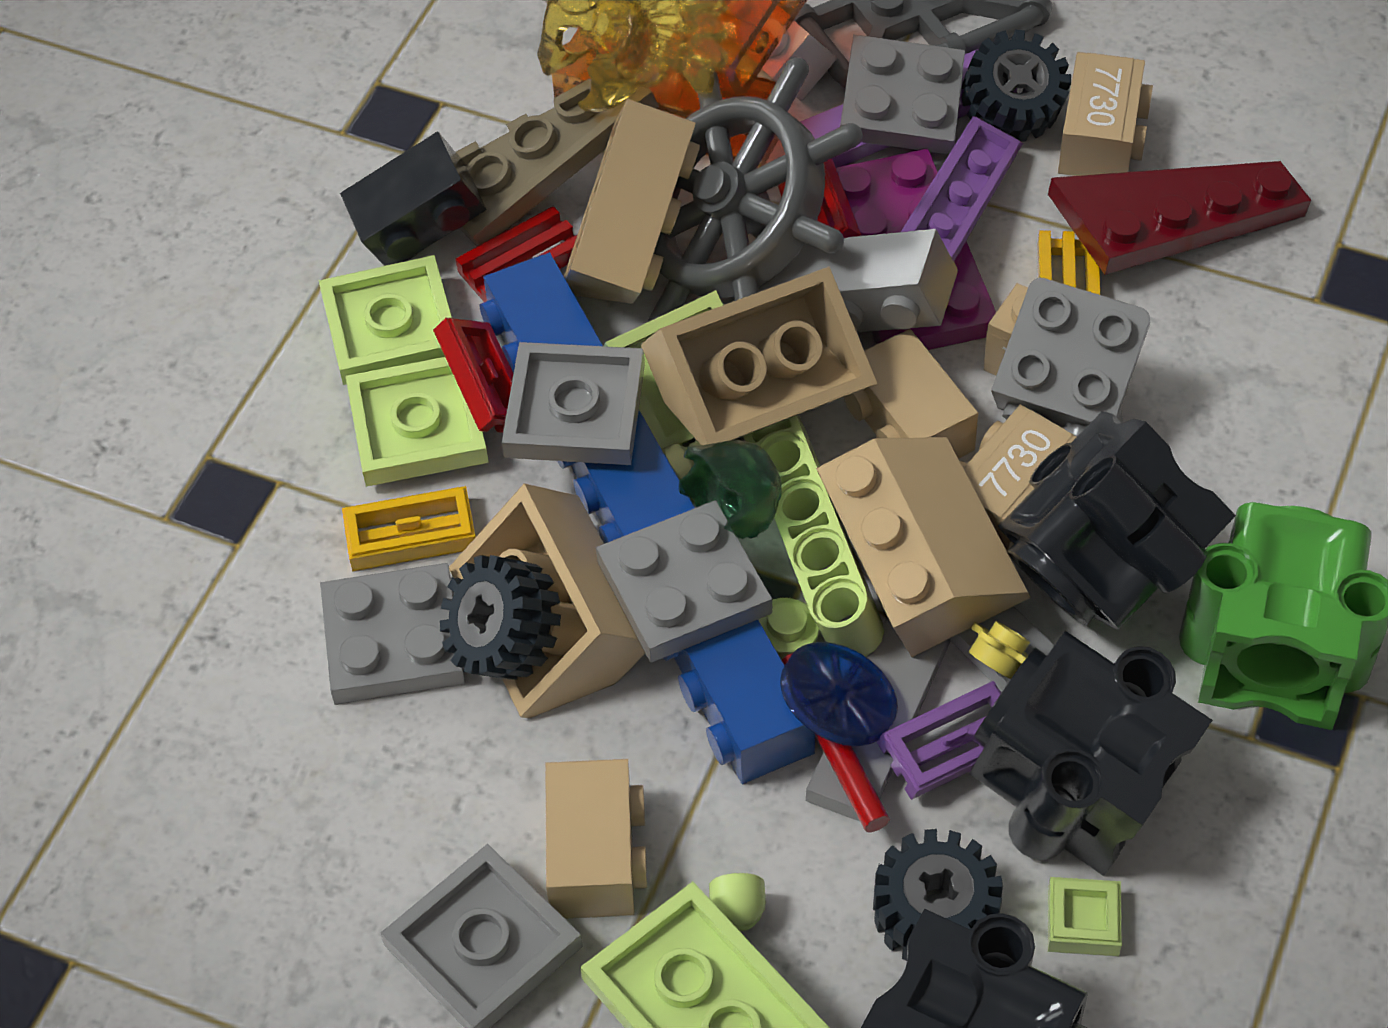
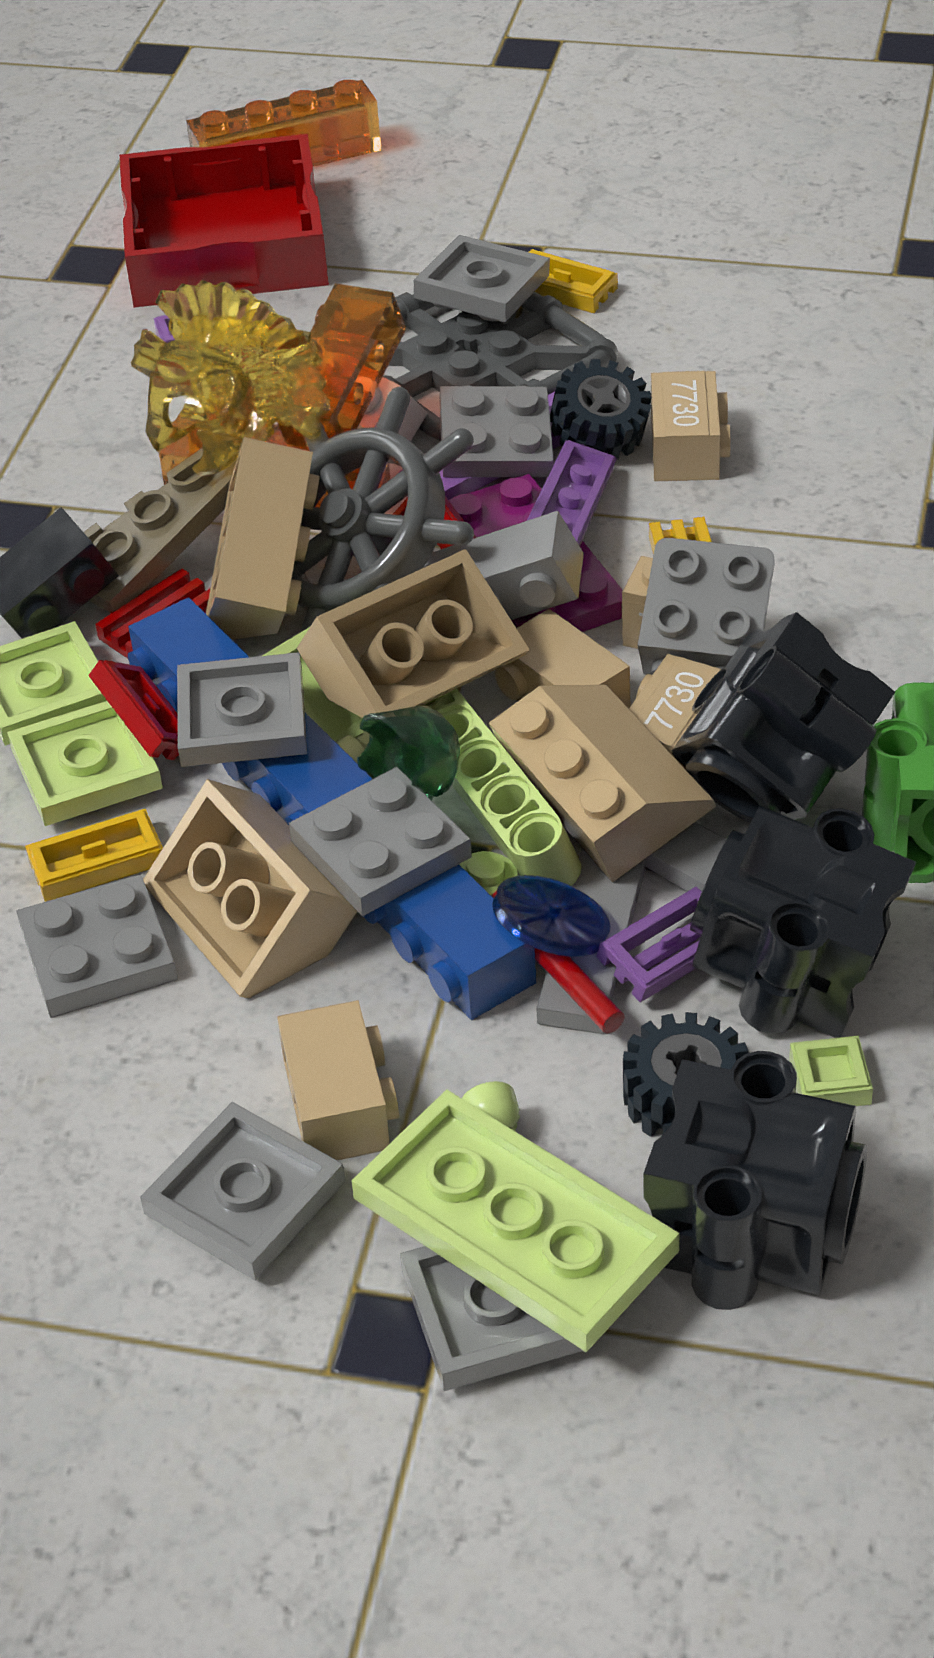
camera: 10 degrees left, 10 degrees down
(500, 617) = (205, 902): black wheel -> none
(999, 648) = (694, 851): light yellow plate -> none
(1169, 211) = (767, 490): dark red wing -> none

